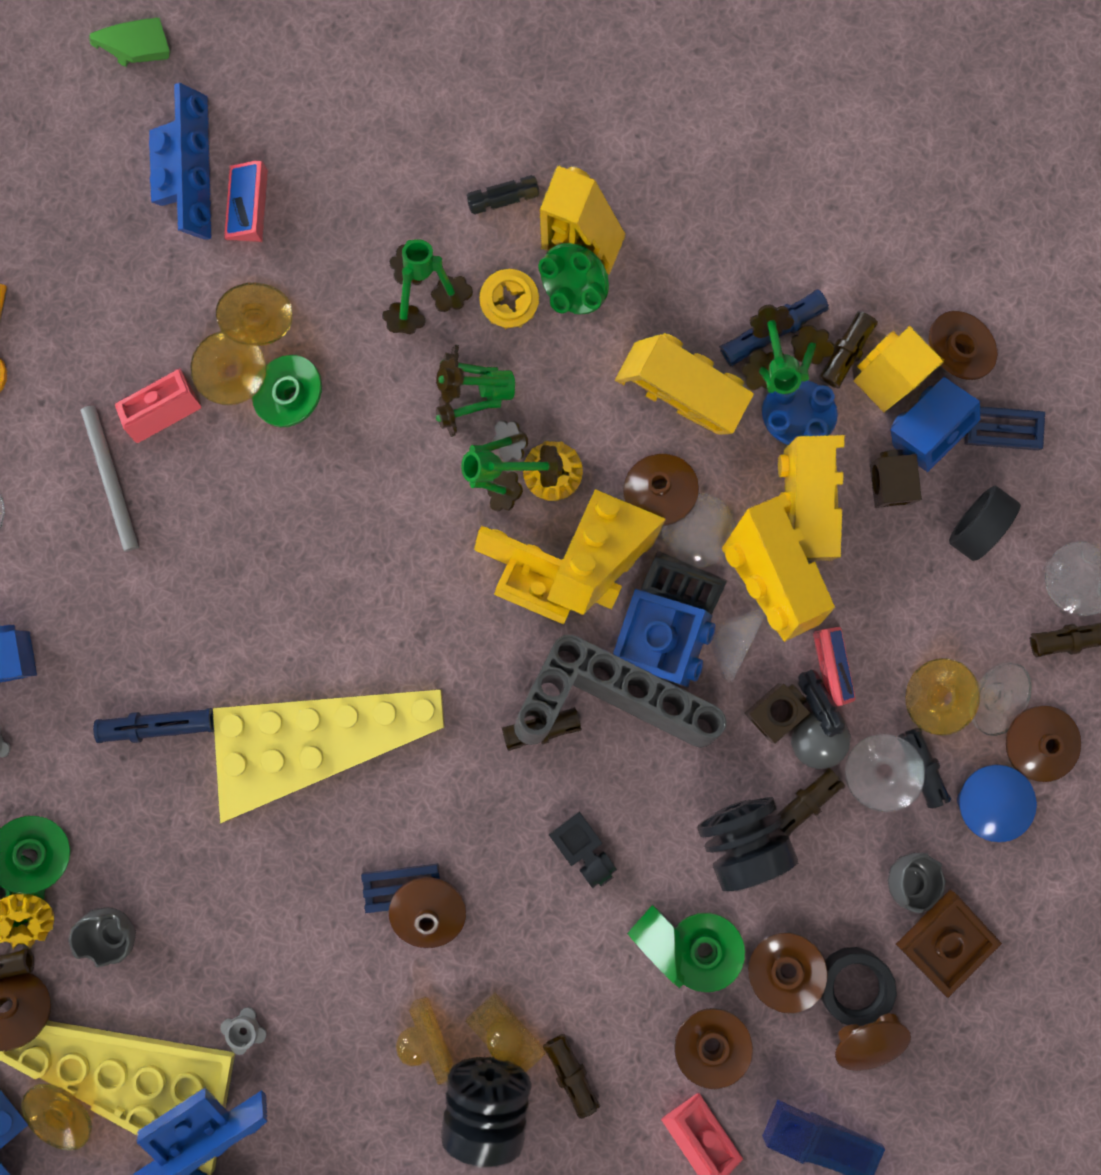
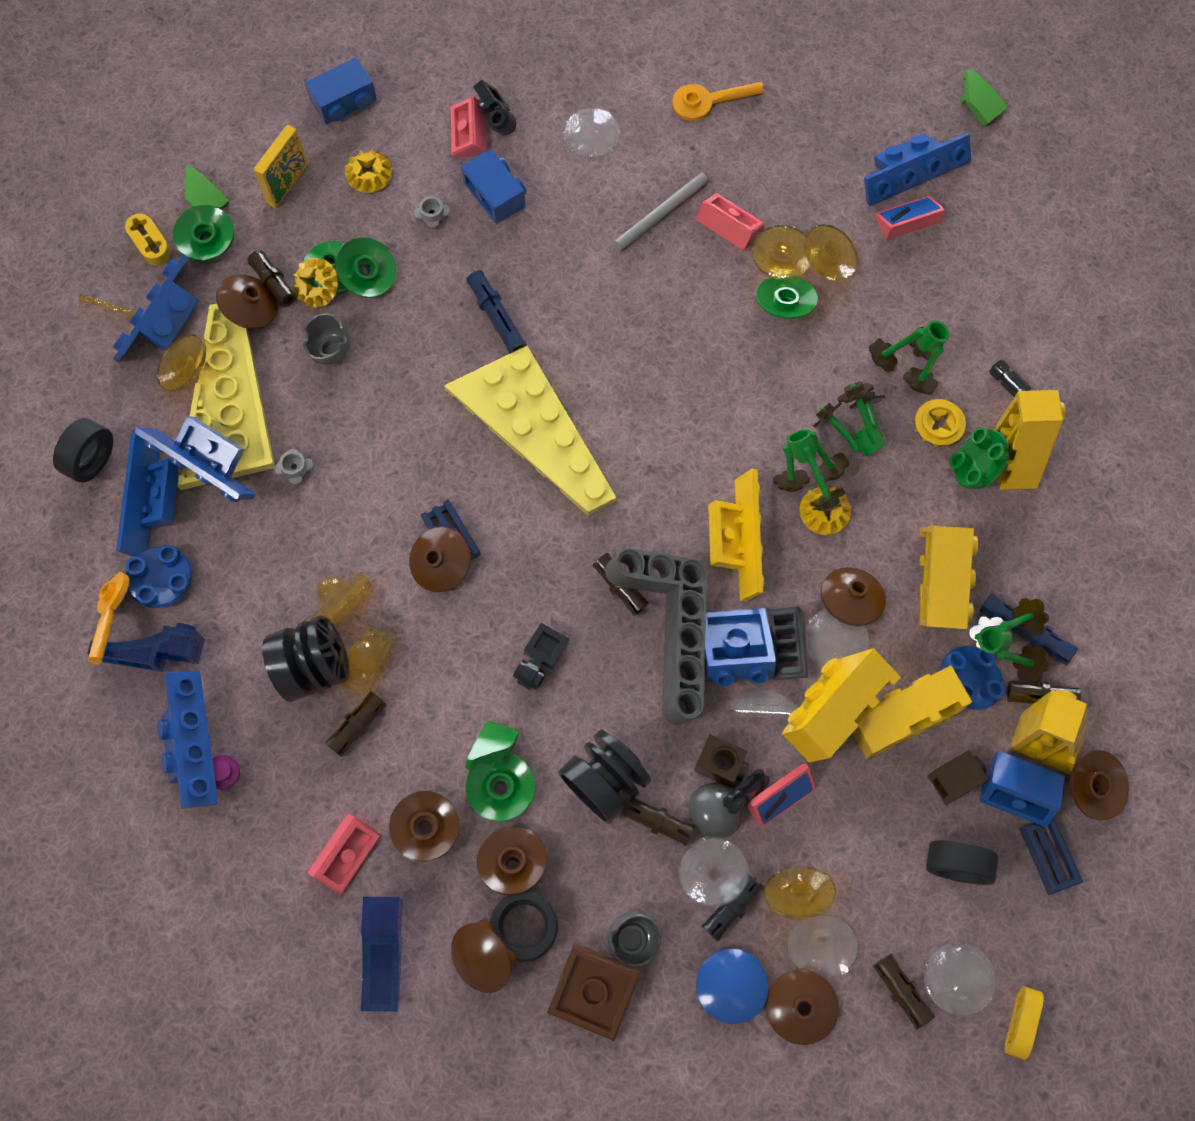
camera: 60 degrees right, 15 degrees down
(602, 549) = (784, 560): yellow wedge -> none

